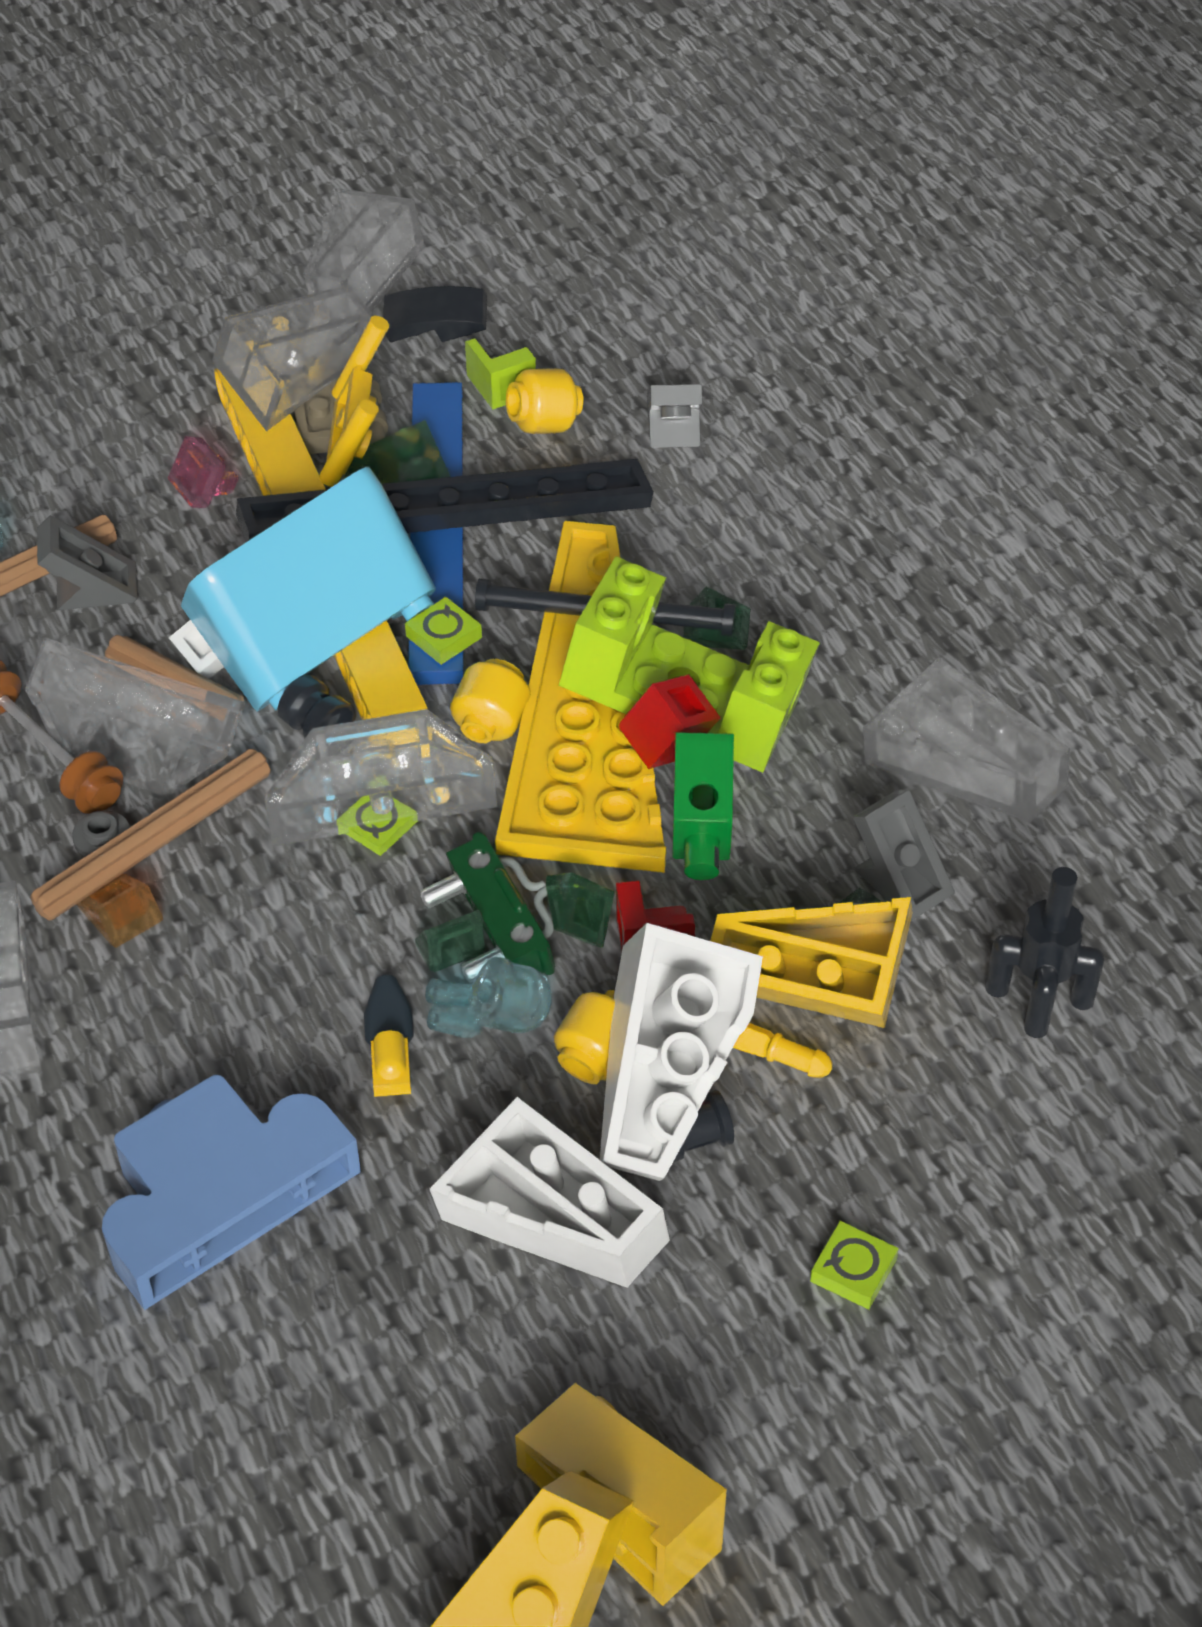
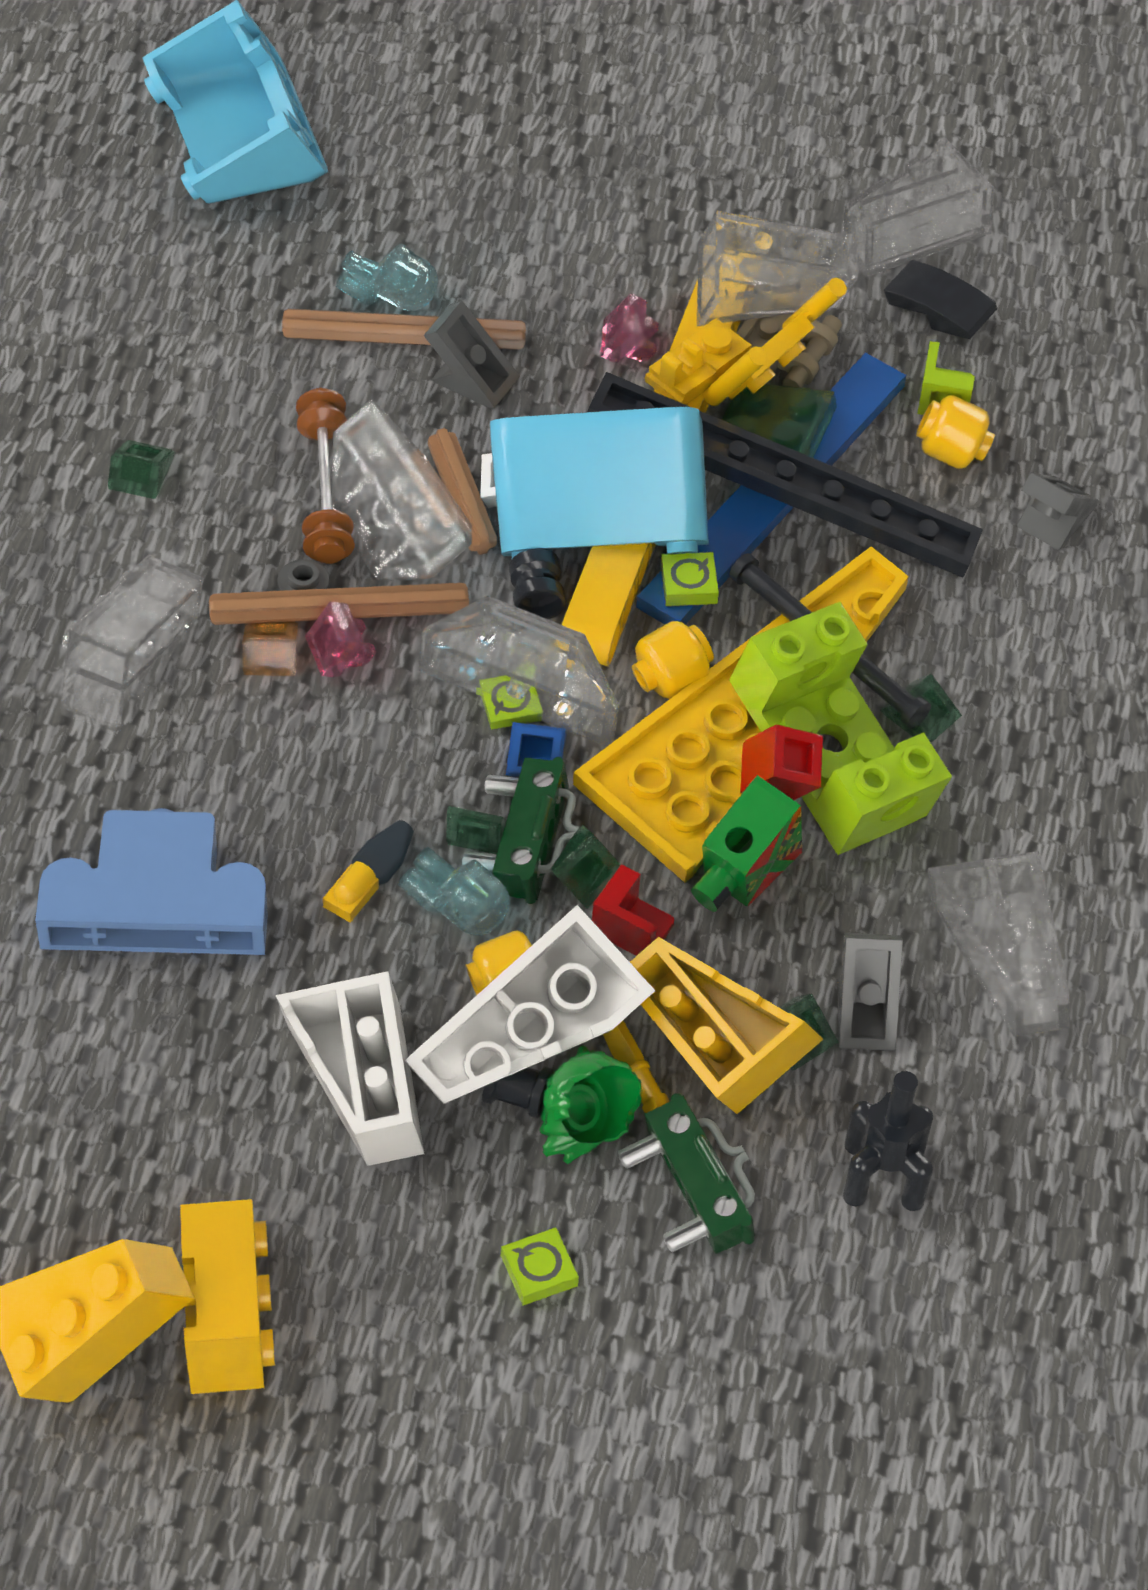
camera: 35 degrees right, 5 degrees up
(182, 863) = (338, 641): none -> clear pink tile
(296, 454) = (697, 362): none -> yellow plate
(430, 842) = (535, 743): none -> blue slope
(773, 1096) = (588, 1103): none -> green hair
(895, 1085) = (699, 1175): none -> dark green piece

